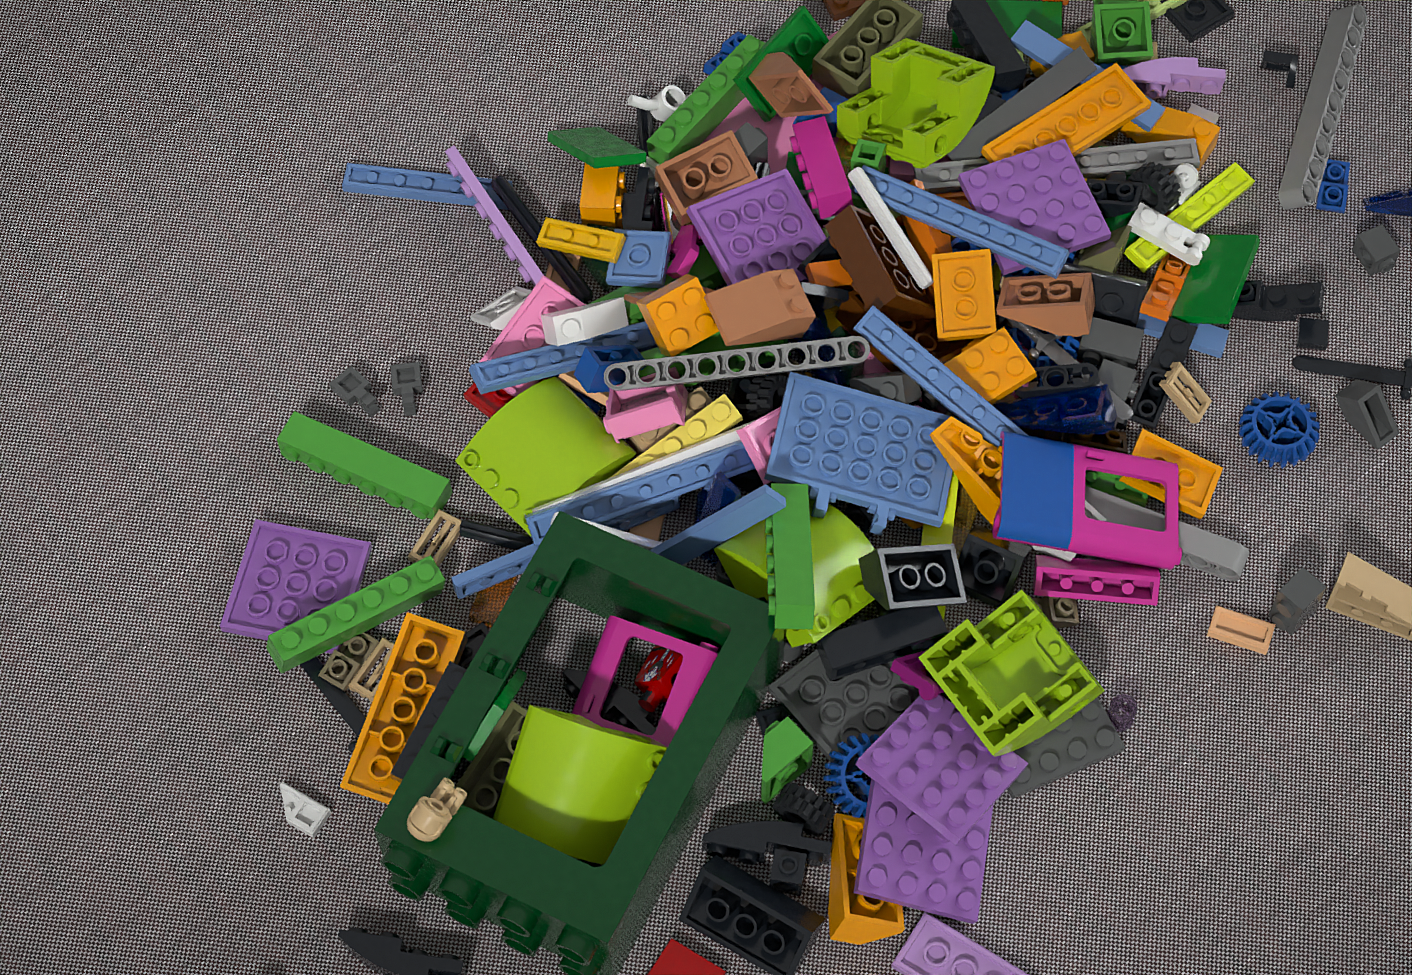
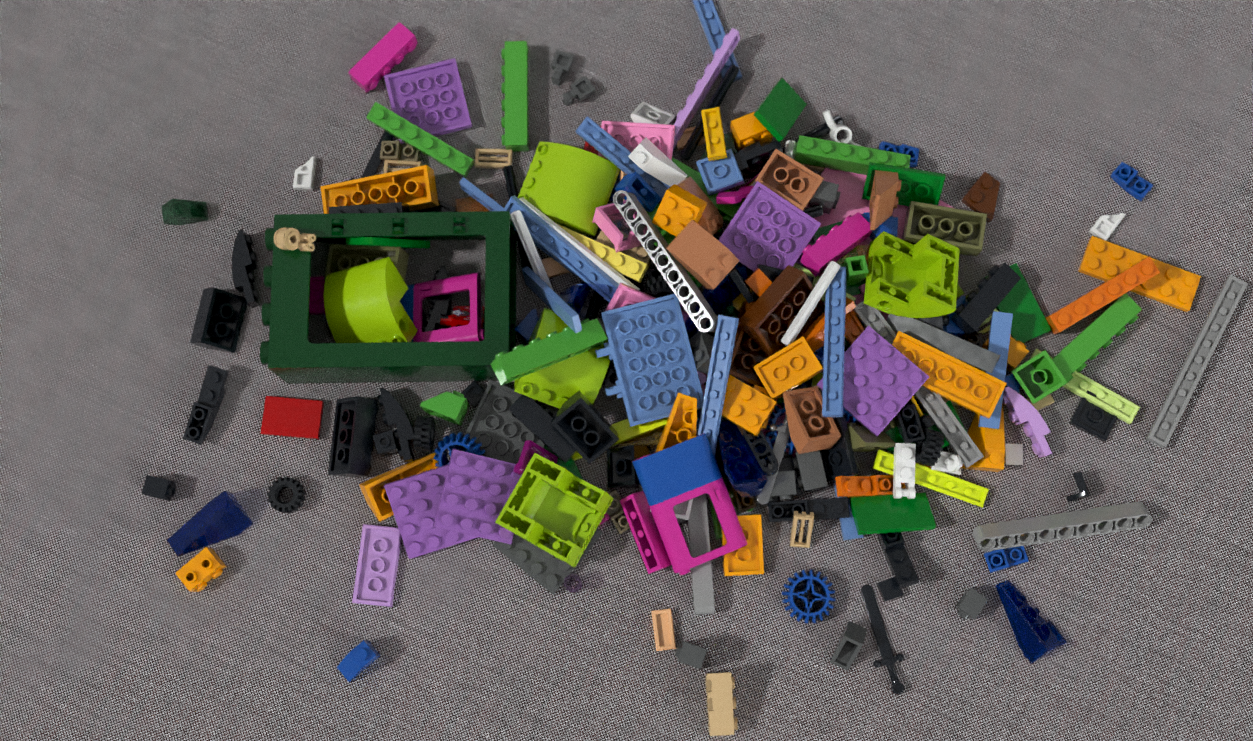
camera: 65 degrees right, 15 degrees up
(190, 615) = (383, 57): none -> dark pink brick

